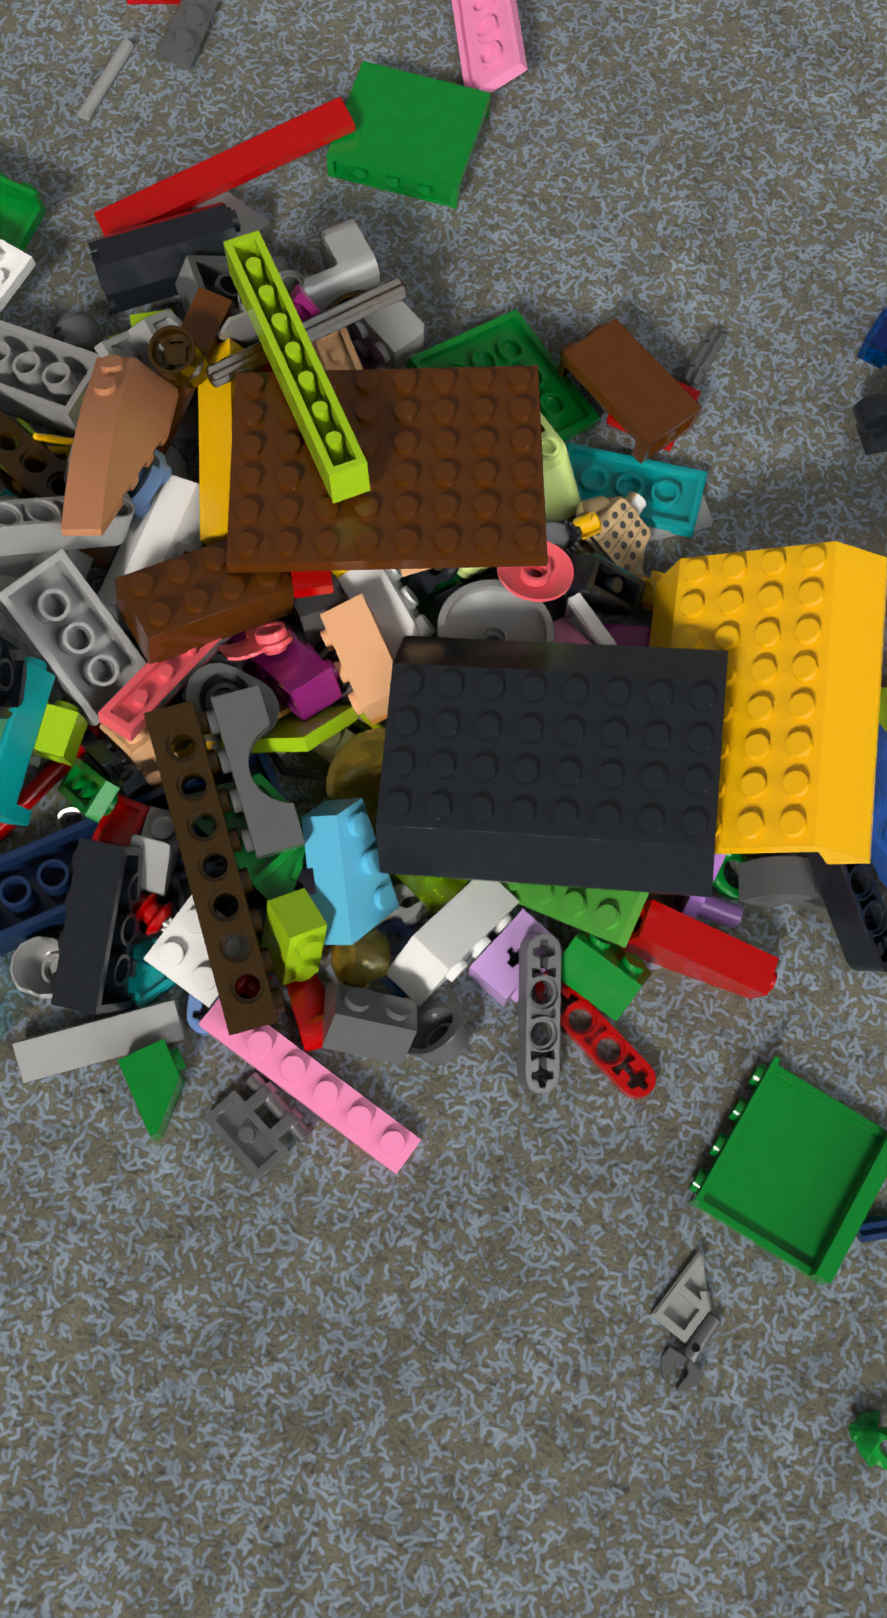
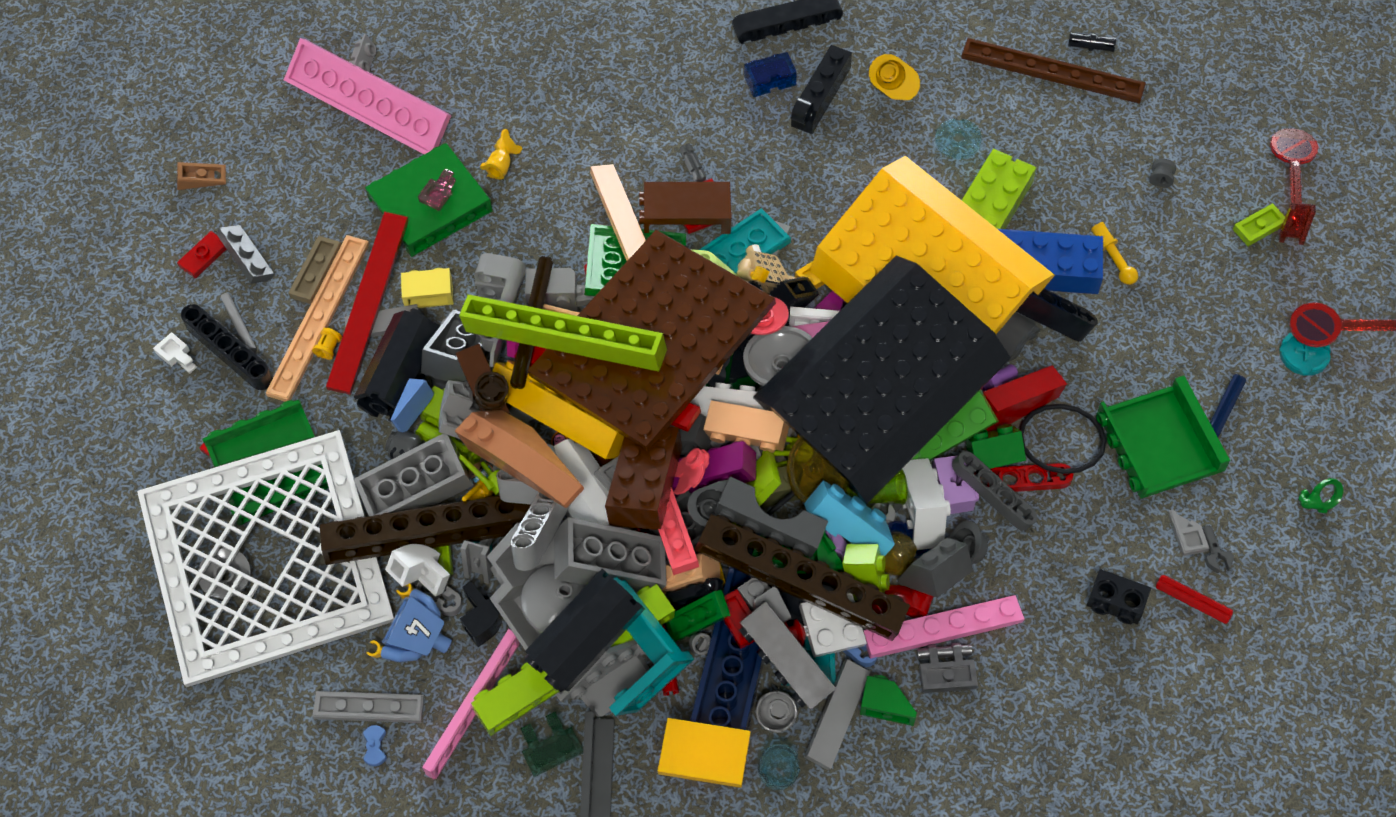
camera: 45 degrees left, 10 degrees down
(17, 47) = (174, 350): none -> white plate
(62, 88) = (223, 338): none -> black beam
(119, 301) = (411, 403): none -> medium blue slope
(145, 174) = (327, 343): none -> yellow bush
(167, 146) = (317, 317): none -> light nougat tile
(228, 97) = (314, 269): none -> dark tan plate
(294, 214) = (427, 287): none -> light yellow piece
(411, 127) = (437, 192): none -> clear pink plate
(522, 161) = (499, 160): none -> yellow animal
(527, 1269) = (1120, 590): none -> black brick
(567, 318) = (618, 209): none -> light nougat tile
(596, 1373) = (1194, 599): none -> red axle
(687, 1107) = (1071, 408): none -> black piece

